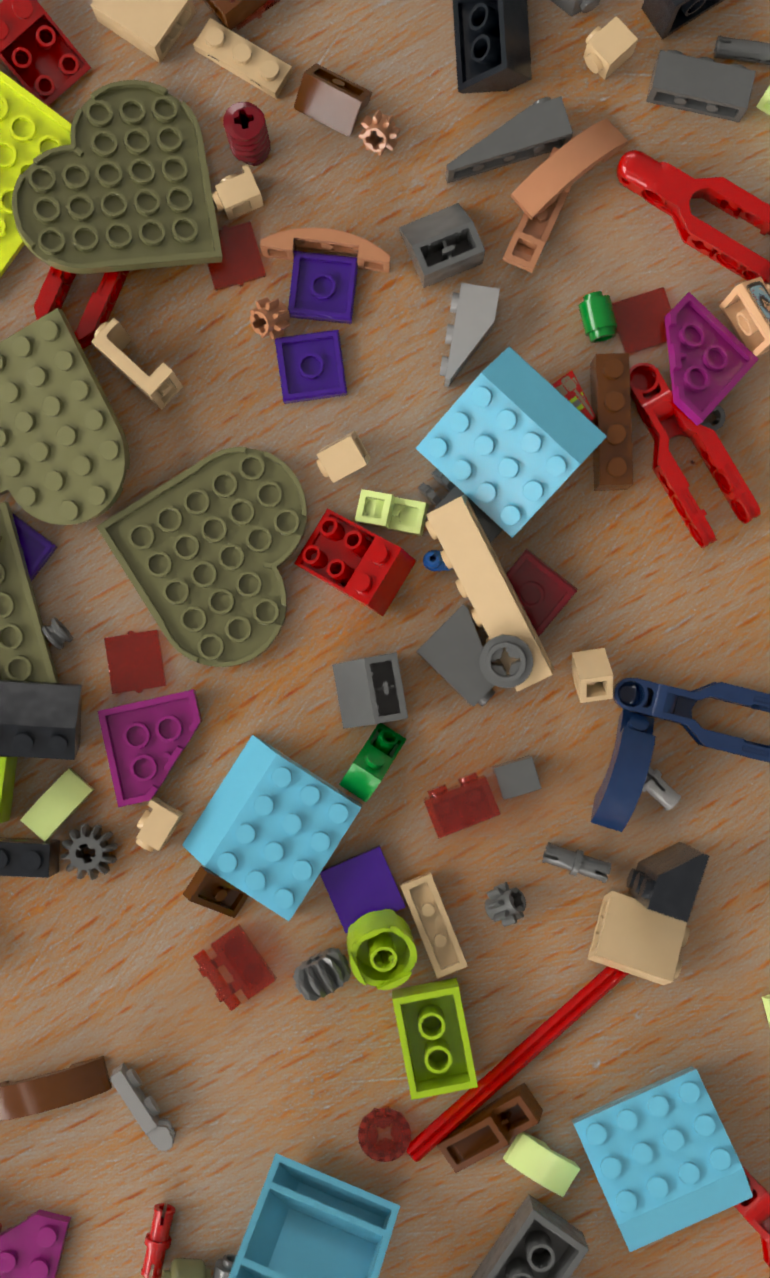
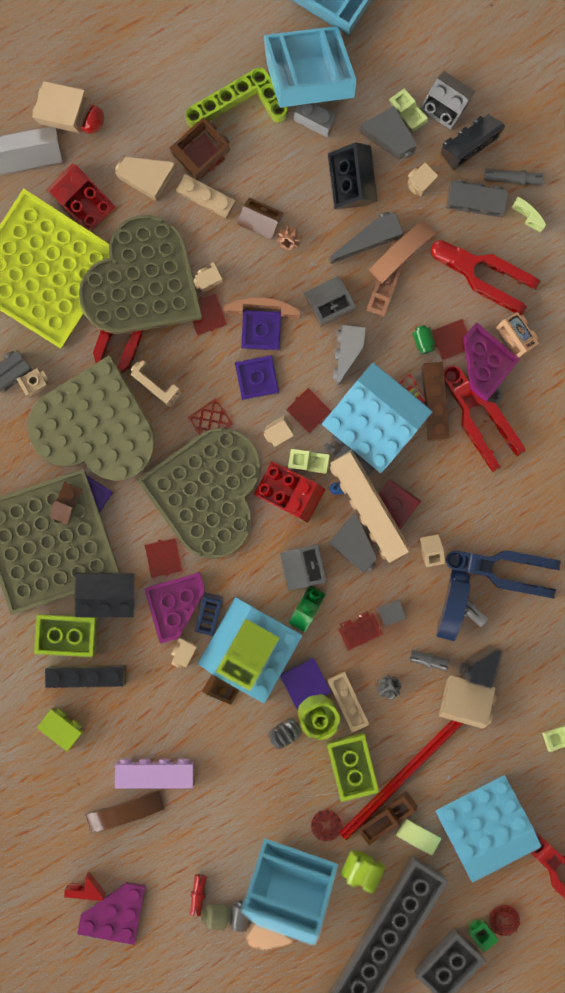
camera: 10 degrees left, 0 degrees up
(57, 633) = (117, 544): dark grey bush -> none
(57, 804) = (123, 644): yellowish green slope -> none
(86, 862) = (140, 676): dark grey gear -> none
(95, 1030) = (154, 774): none -> lavender brick
(143, 1108) = (185, 818): light grey hinge -> none
(210, 734) = (211, 598): none -> dark blue slope
(216, 416) = (223, 412): none -> clear red window
(243, 963) = (237, 729): clear red plate -> none
(247, 133) = (212, 236): dark red piece -> none
(262, 837) = (247, 654): none -> lime slope
(269, 318) = (231, 351): nougat gear -> none
(395, 427) = (308, 410): none -> clear red piece
(442, 1221) = (362, 871): none -> lime brick
(495, 672) = (376, 552): dark grey gear -> none

